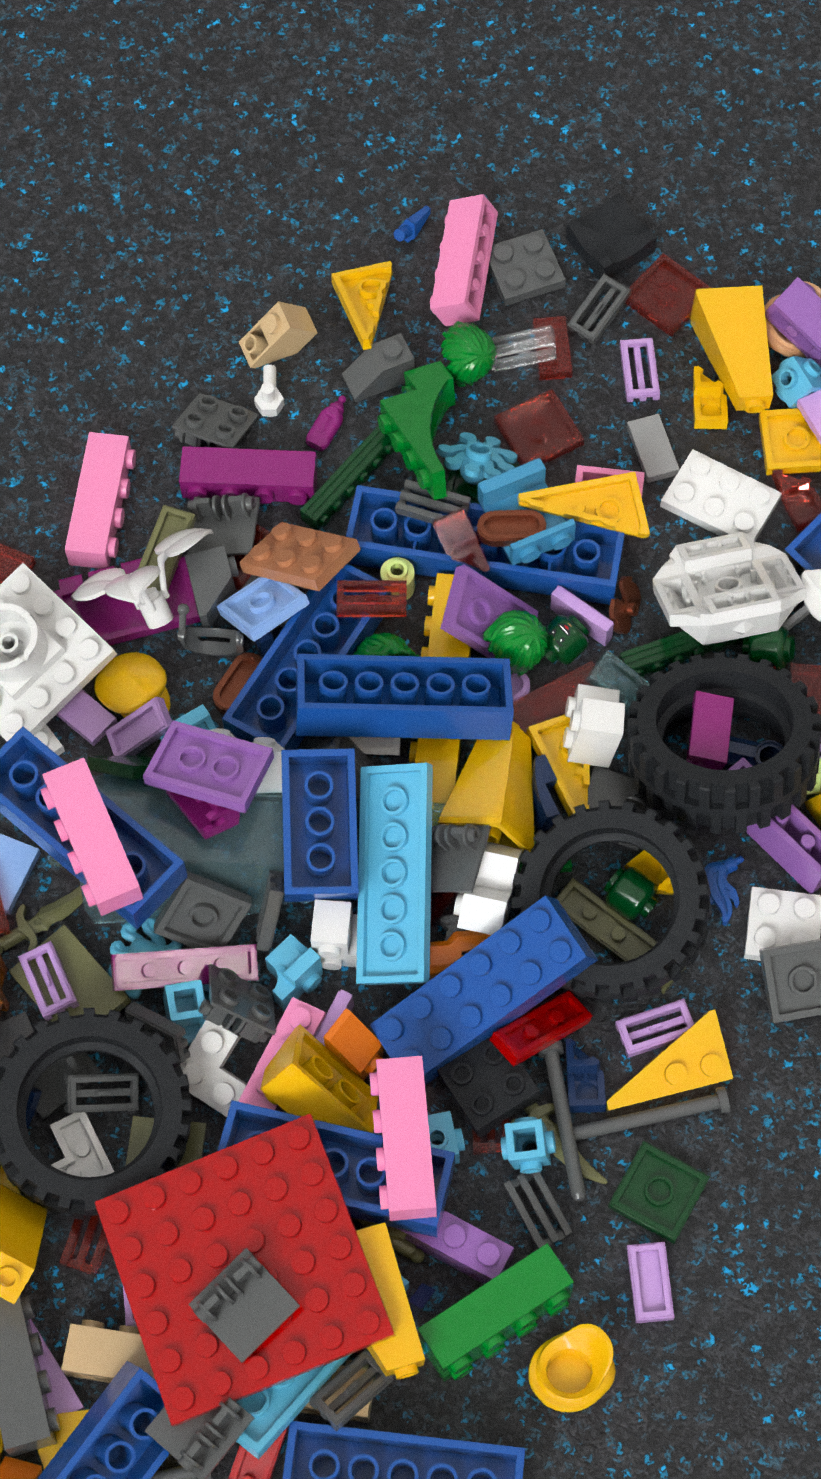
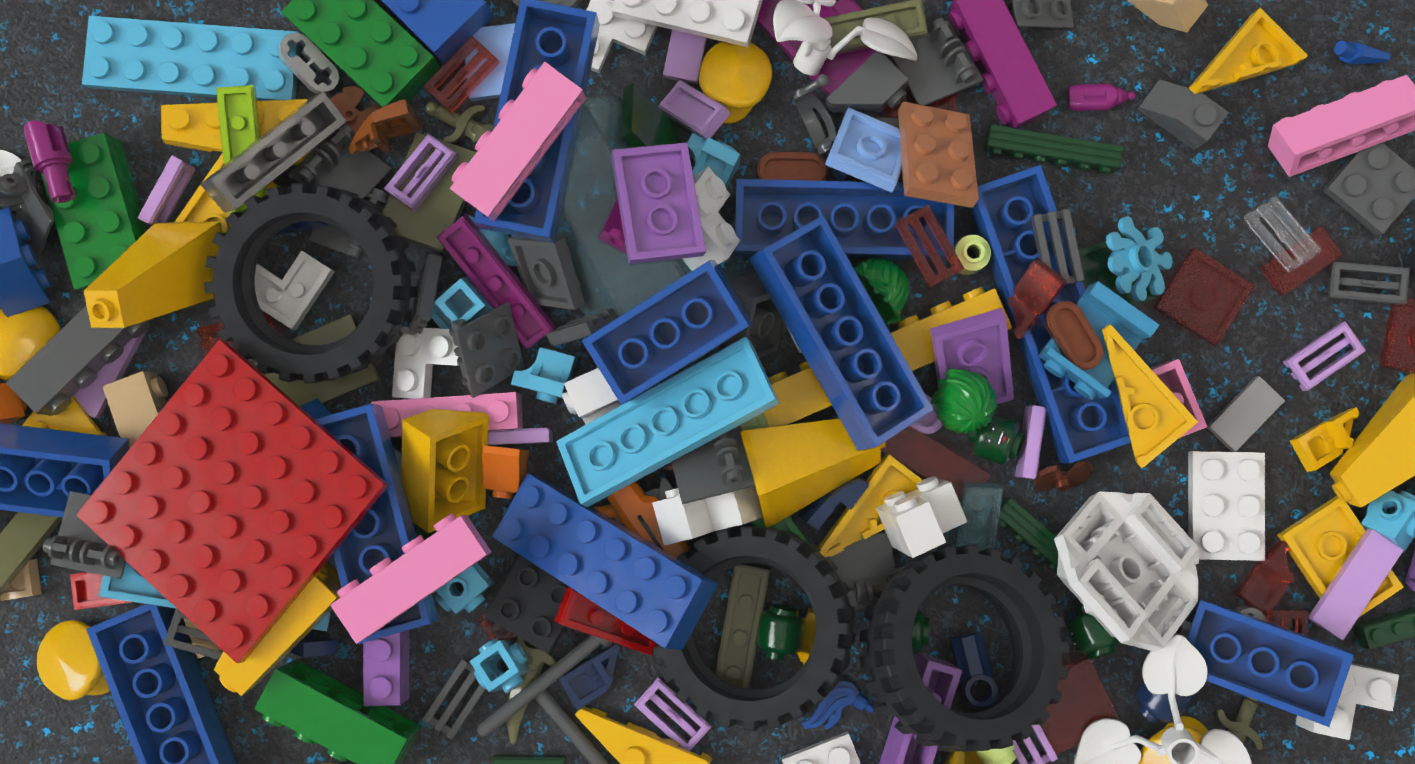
camera: 65 degrees right, 20 degrees up
(71, 1092) = (354, 273): dark grey tile -> none
(244, 1305) = (188, 522): dark grey hinge -> none
(269, 399) = (1093, 26): white piece -> none
(414, 419) = (1137, 178): green arch -> none
(469, 353) = (1246, 188): green hair -> none
(710, 730) = (969, 630): magenta hinge -> none

